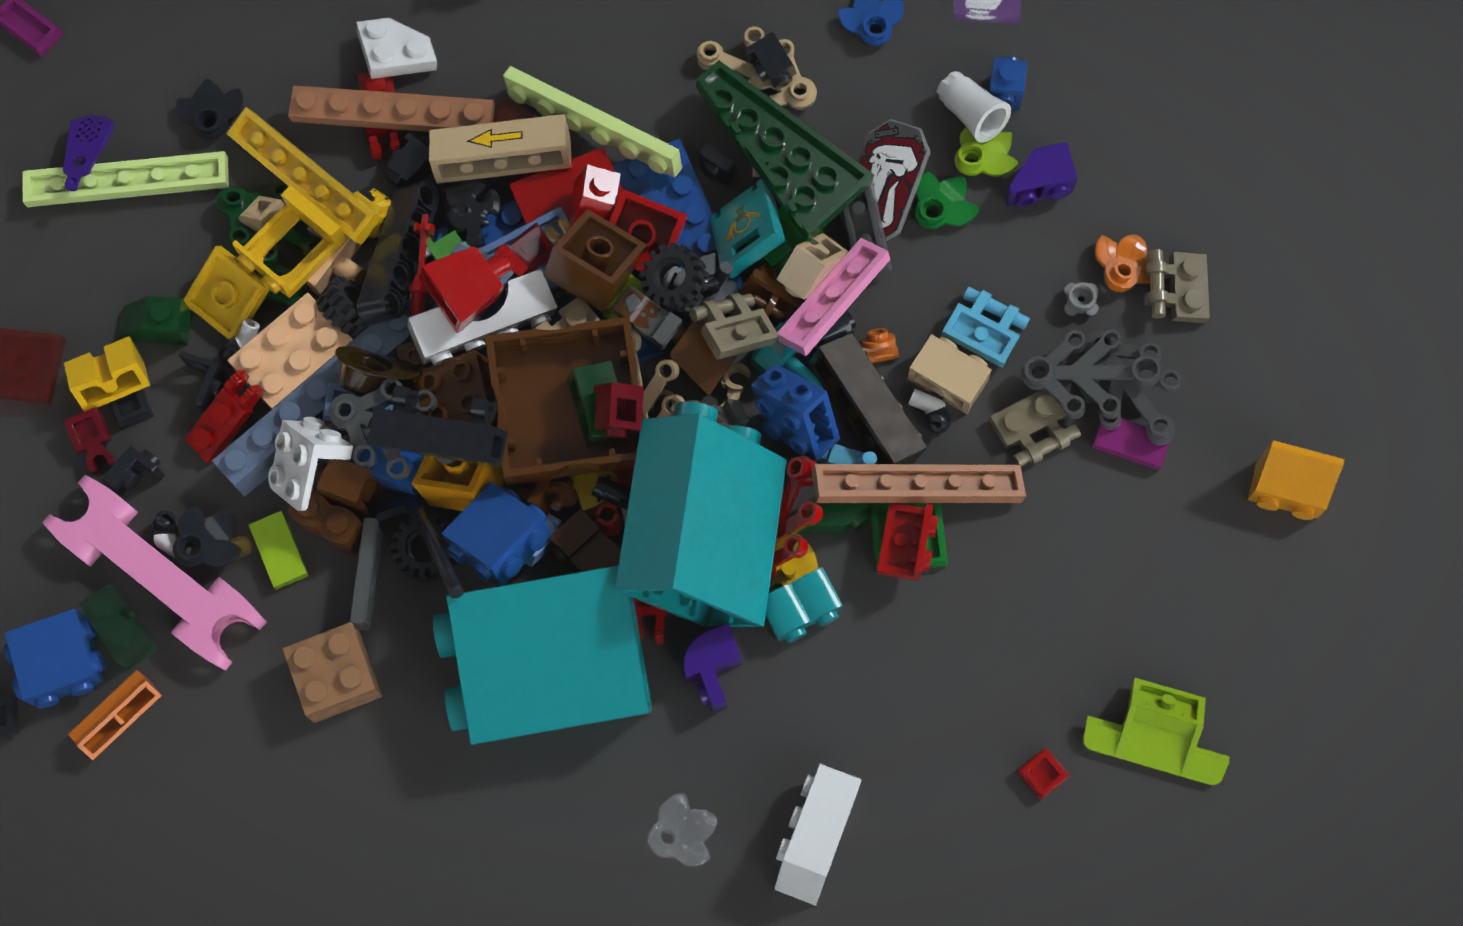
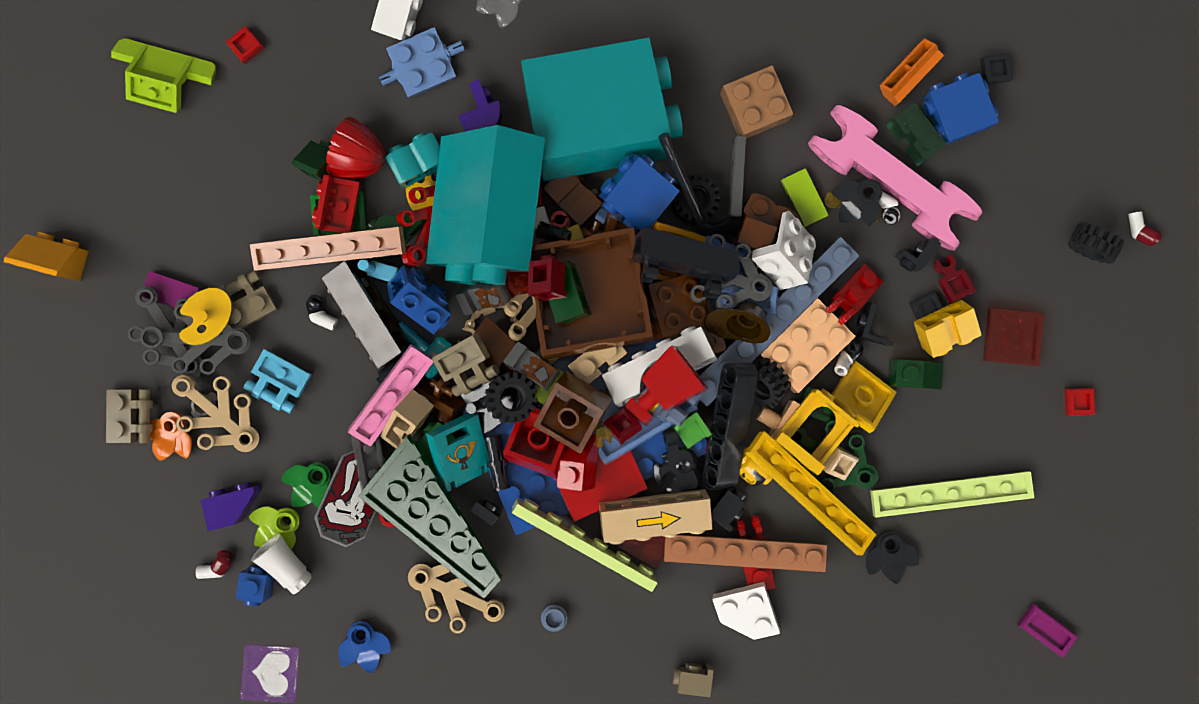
camera: 170 degrees right, 15 degrees up
(85, 142) = (984, 516): dark purple piece -> none
(417, 288) = (710, 395): red piece -> none
(635, 45) = (554, 618): none -> sand blue plate
(699, 217) = (497, 463): none -> black pin
(771, 61) = (441, 597): black brick -> none
(794, 741) = (421, 63): none -> medium blue plate
(879, 610) = (354, 151): none -> red hair
(880, 345) = (358, 365): orange plate -> none
(934, 601) = (312, 159): none -> dark green slope
(949, 373) = (305, 341): tan brick -> none
(1057, 105) = (217, 568): none -> dark red arm
(1061, 281) = (219, 415): none -> tan plant
(1075, 408) = (208, 308): none -> yellow piece

